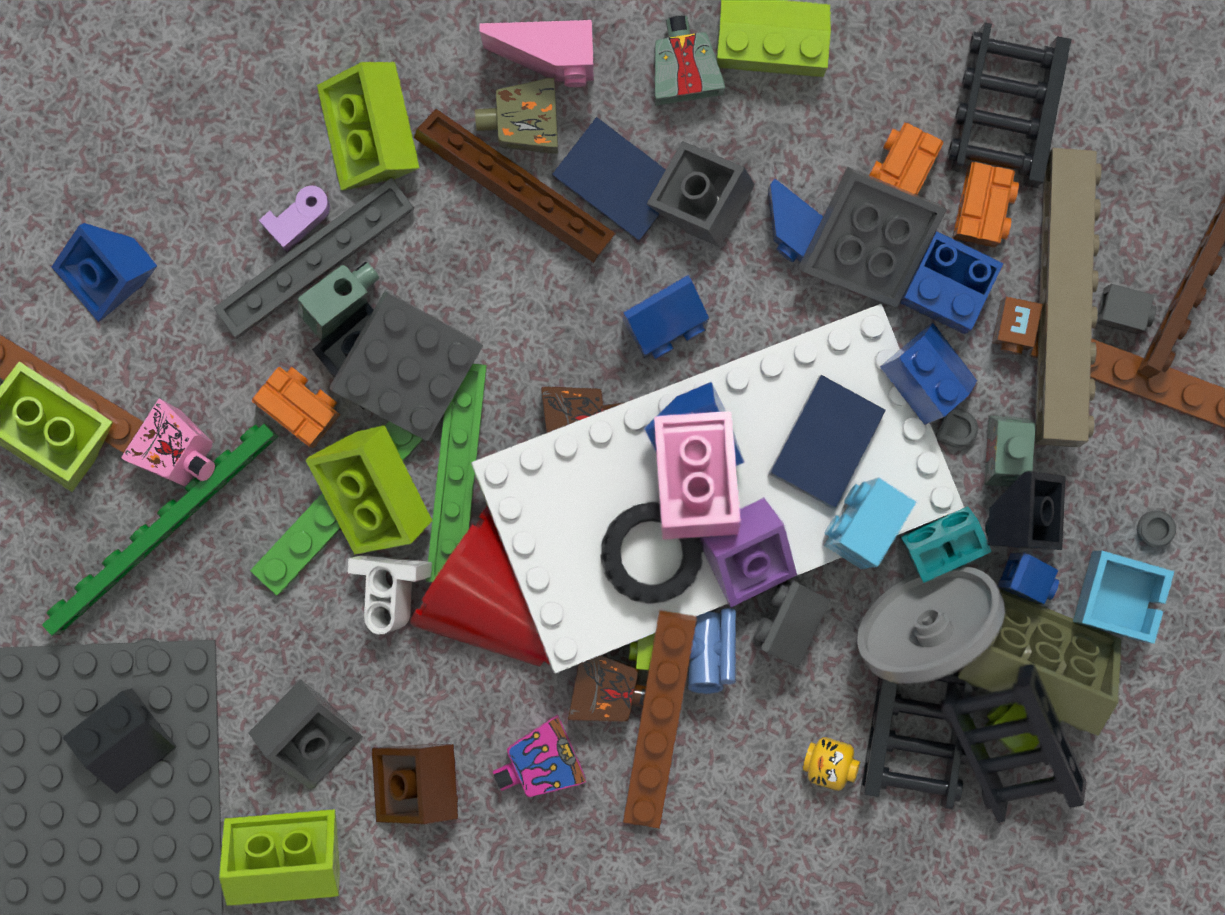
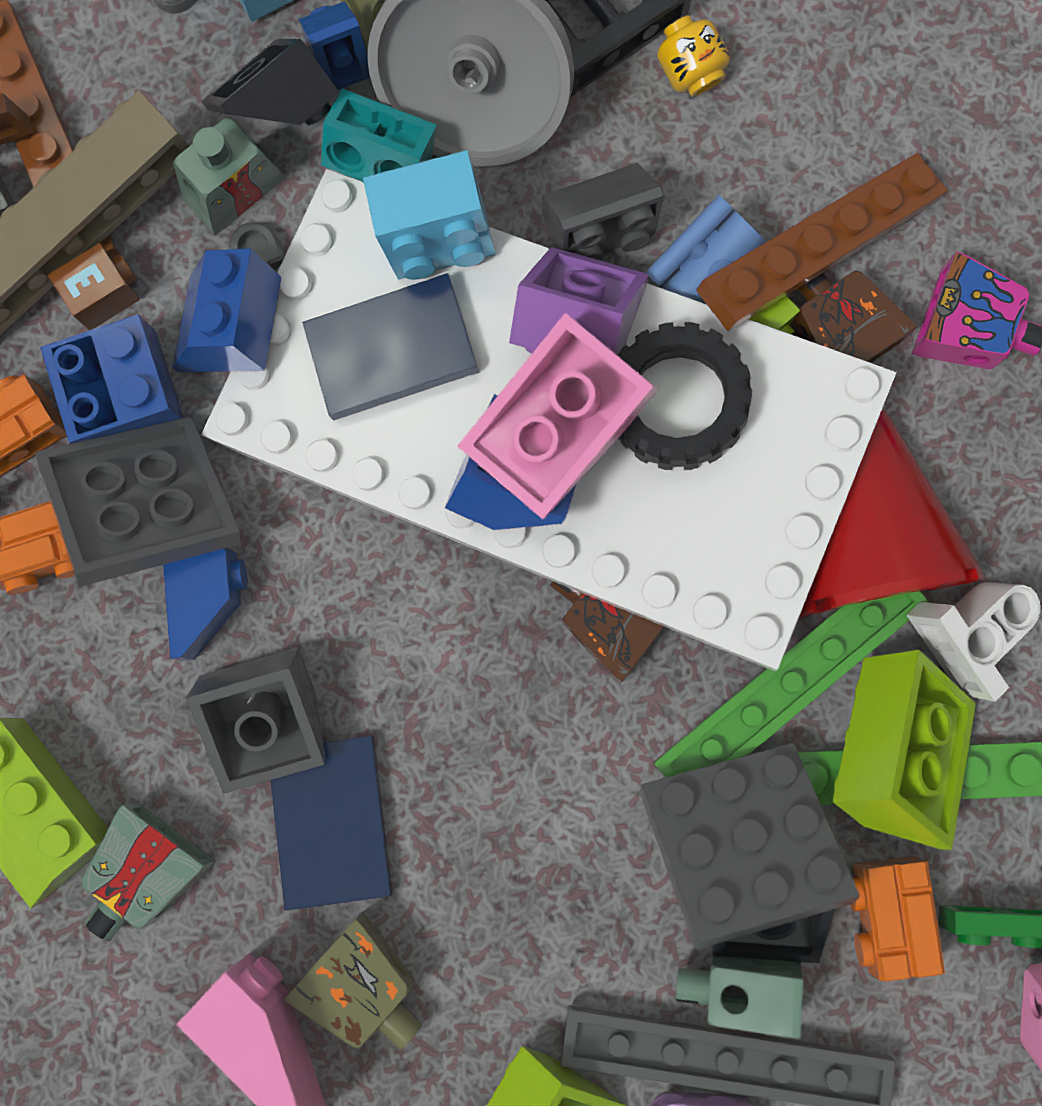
camera: 125 degrees left, 5 degrees down
(514, 185) = (441, 928): reddish brown plate -> none
(666, 317) = (423, 625): blue slope -> none

